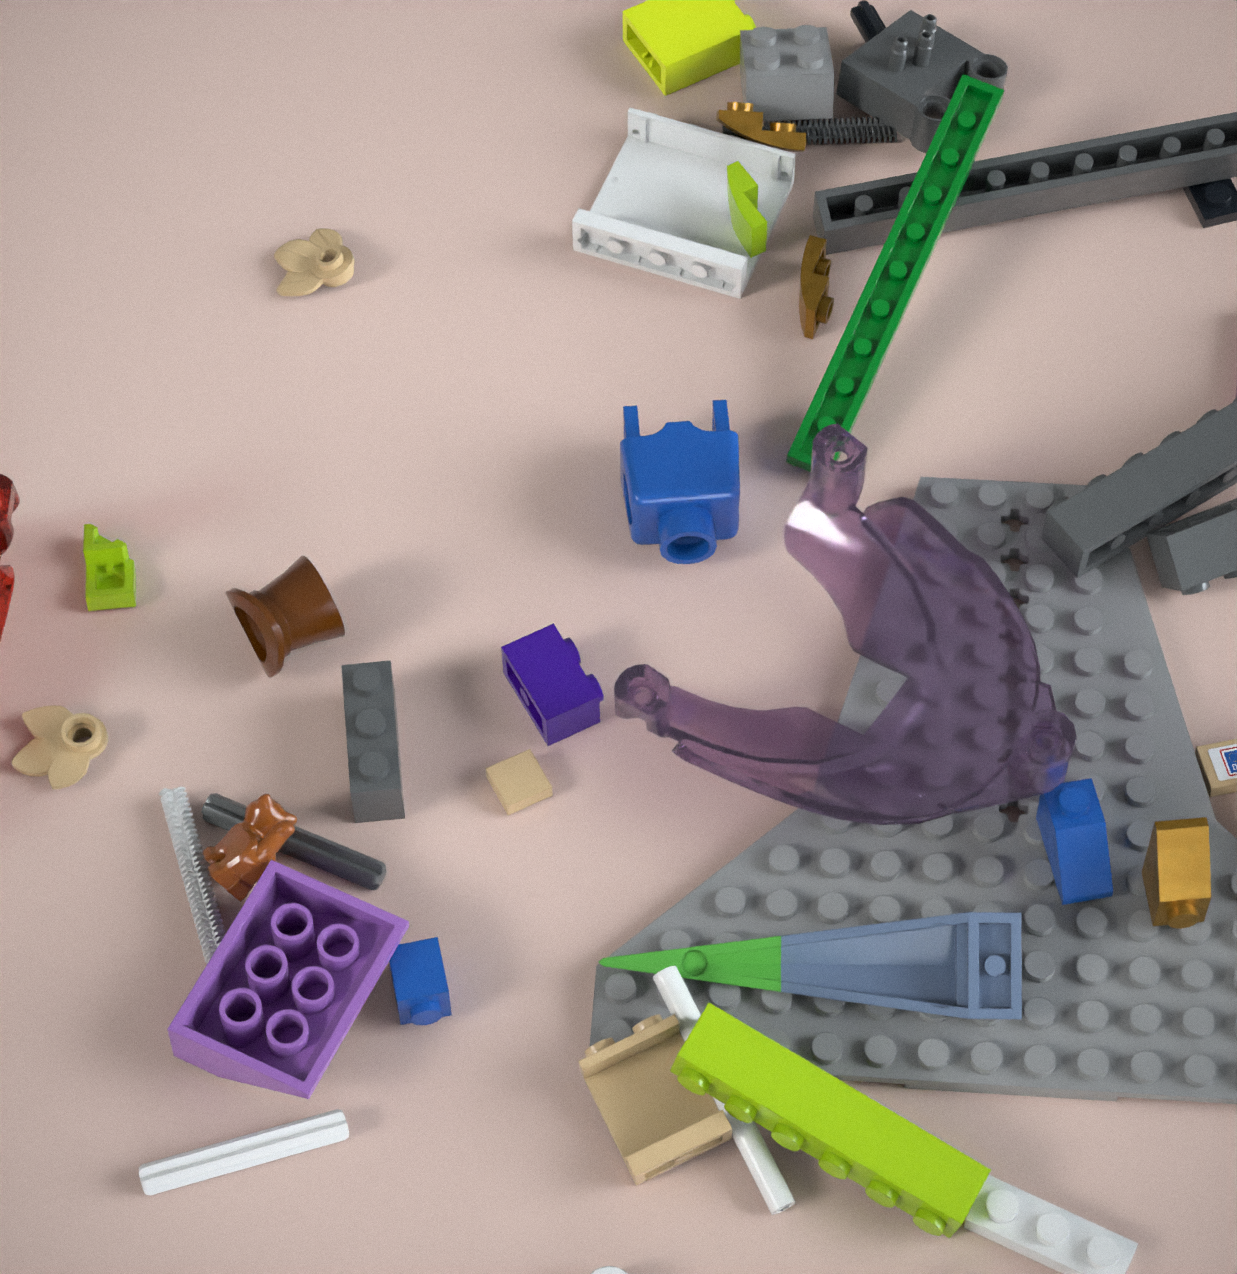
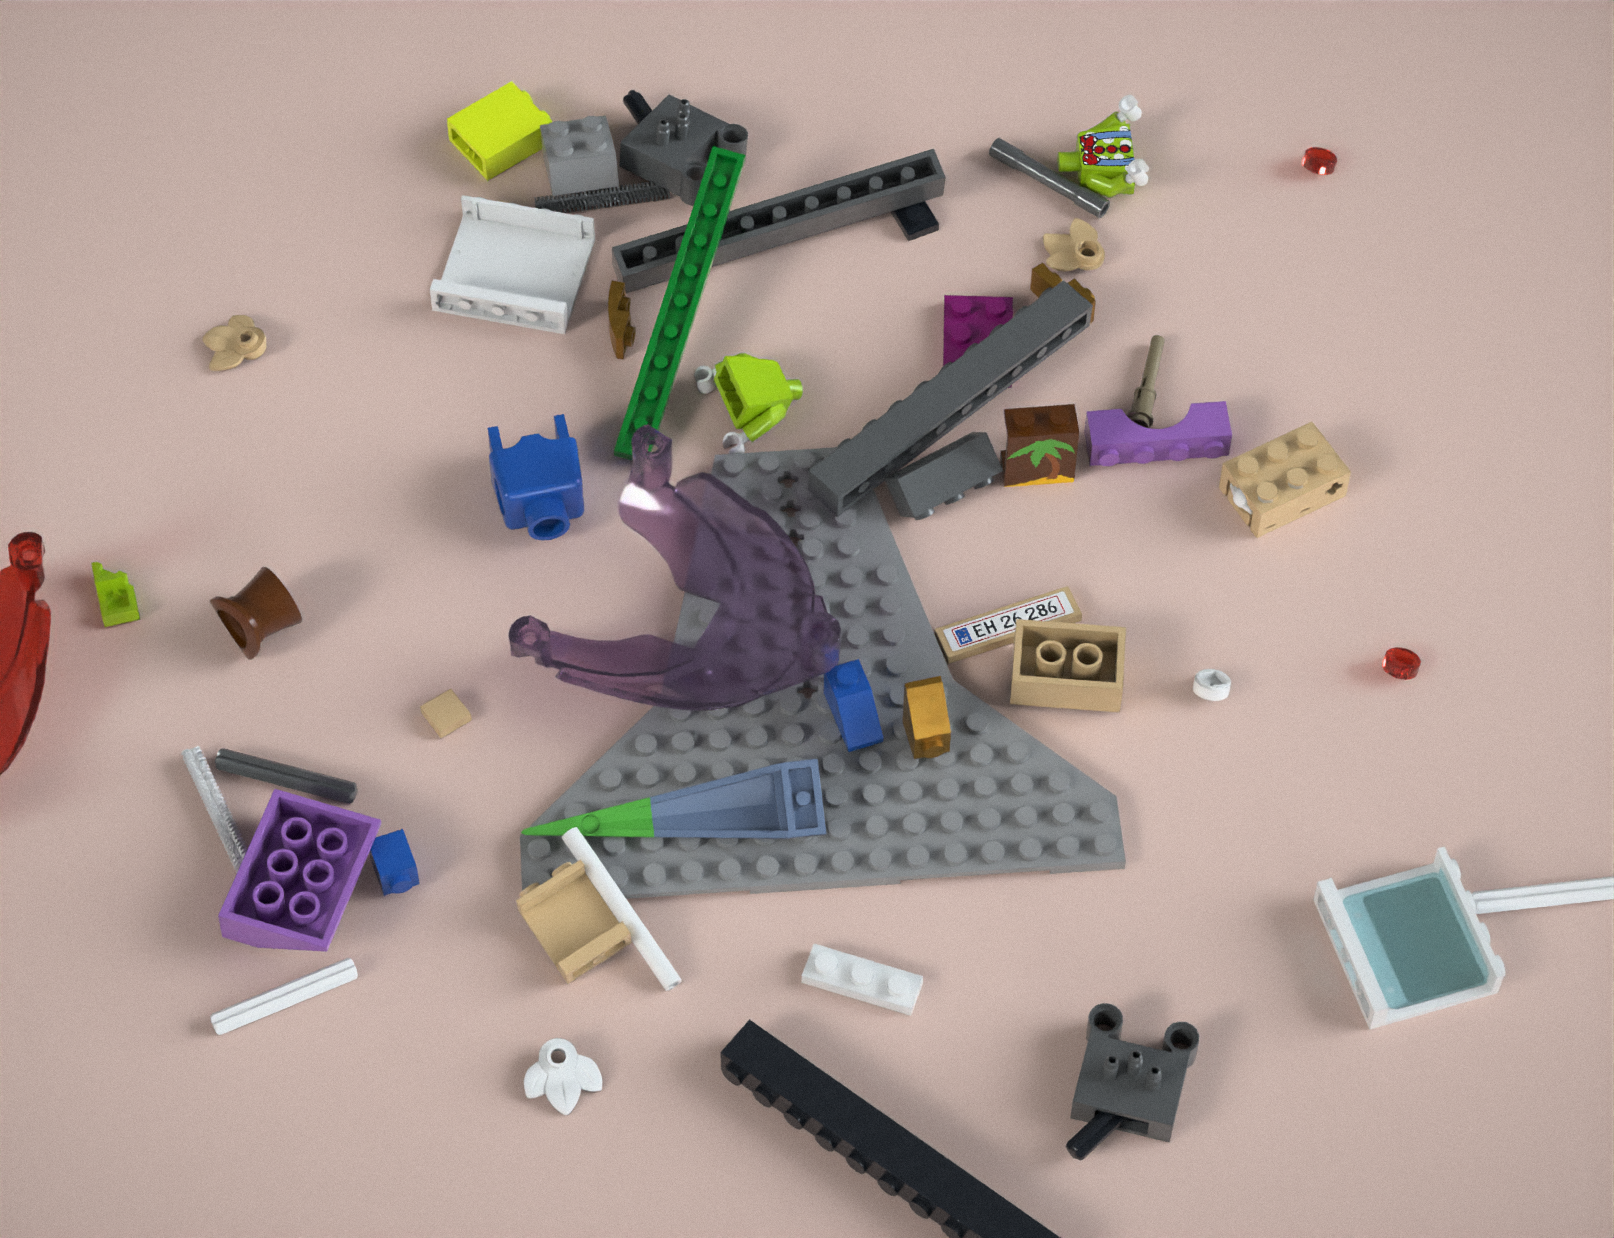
camera: 10 degrees left, 0 degrees up
(55, 745) = (96, 727): tan plate -> none
(250, 846) = (256, 781): dark orange animal -> none
(372, 742) = (334, 696): dark grey brick -> none
(552, 683) = (461, 639): dark purple brick -> none
(743, 205) = (558, 262): lime slope -> none
(748, 124) = (551, 197): pearl gold slope -> none
(829, 1122) = (697, 919): lime brick -> none
(979, 401) = (752, 393): none -> lime torso

